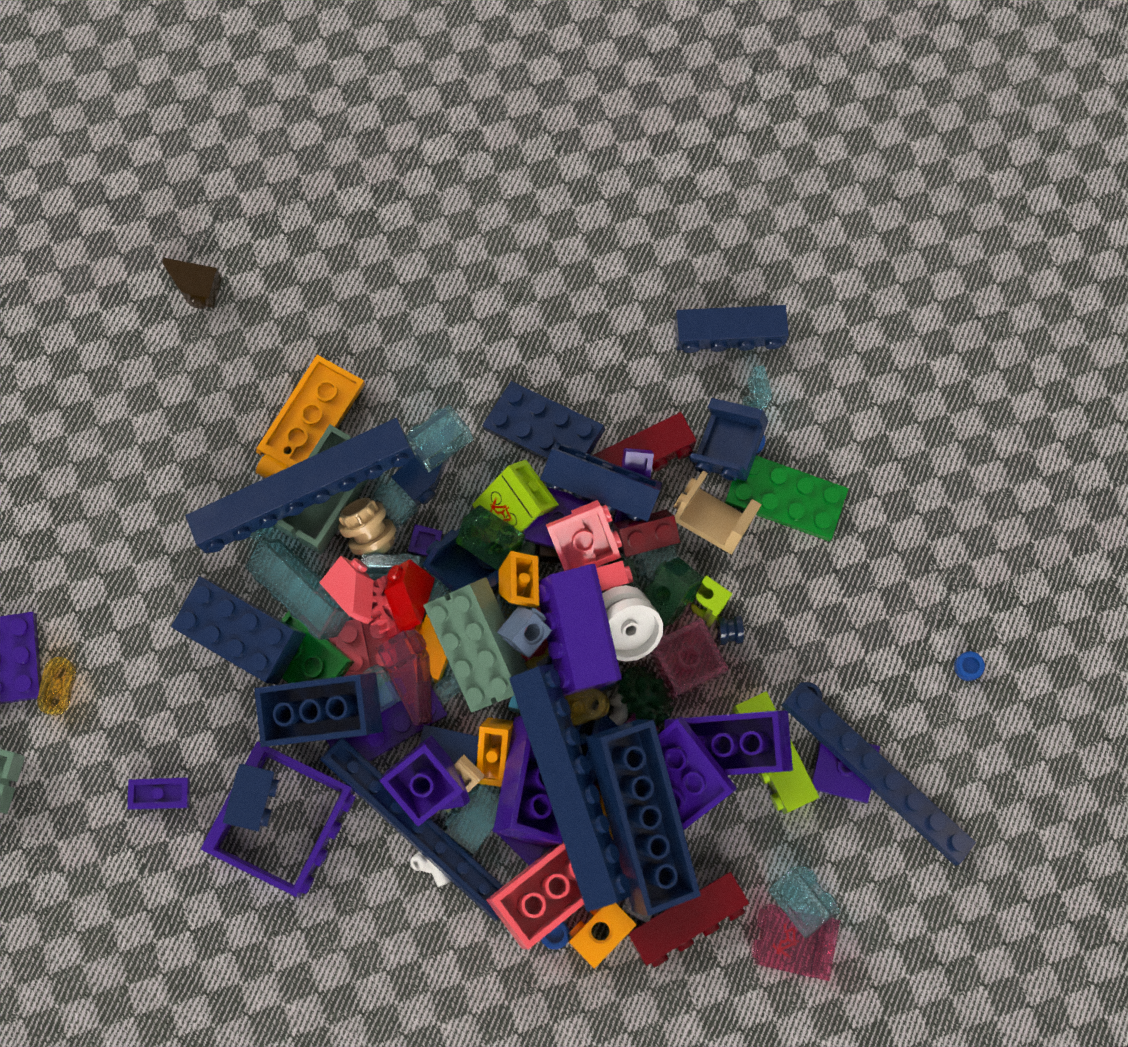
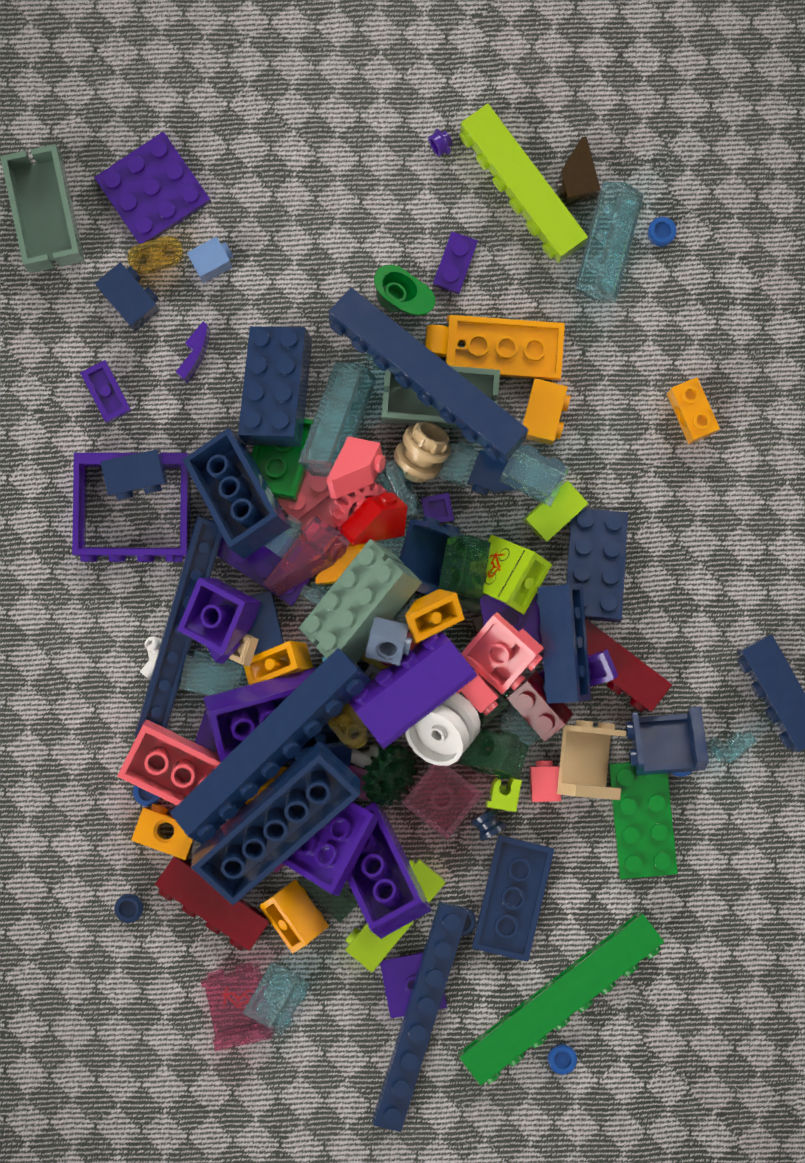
camera: 70 degrees right, 10 degrees up
(81, 729) = (127, 296): none -> dark blue brick
(88, 636) = (211, 259): none -> medium blue brick
(98, 384) = (440, 142): none -> dark purple plate
(161, 688) = (198, 345): none -> dark purple slope
(173, 332) = (522, 183): none -> lime brick
(212, 423) = (455, 263): none -> dark purple plate
(213, 478) = (402, 292): none -> green piece
(266, 283) = (609, 241): none -> clear light blue brick
(280, 239) = (661, 231): none -> blue tile
(381, 404) = (544, 411): none -> light orange brick
(450, 285) = (693, 411): none -> light orange brick
(483, 451) = (548, 520): none -> lime hinge
(656, 1004) = (129, 908): none -> dark blue plate
(715, 563) = (544, 782): none -> coral brick
(735, 805) = (337, 906): none -> clear green plate
(735, 846) = (294, 916): none -> light orange brick
(806, 640) = (513, 898): none -> dark blue plate
(915, 641) = (561, 998): none -> green brick

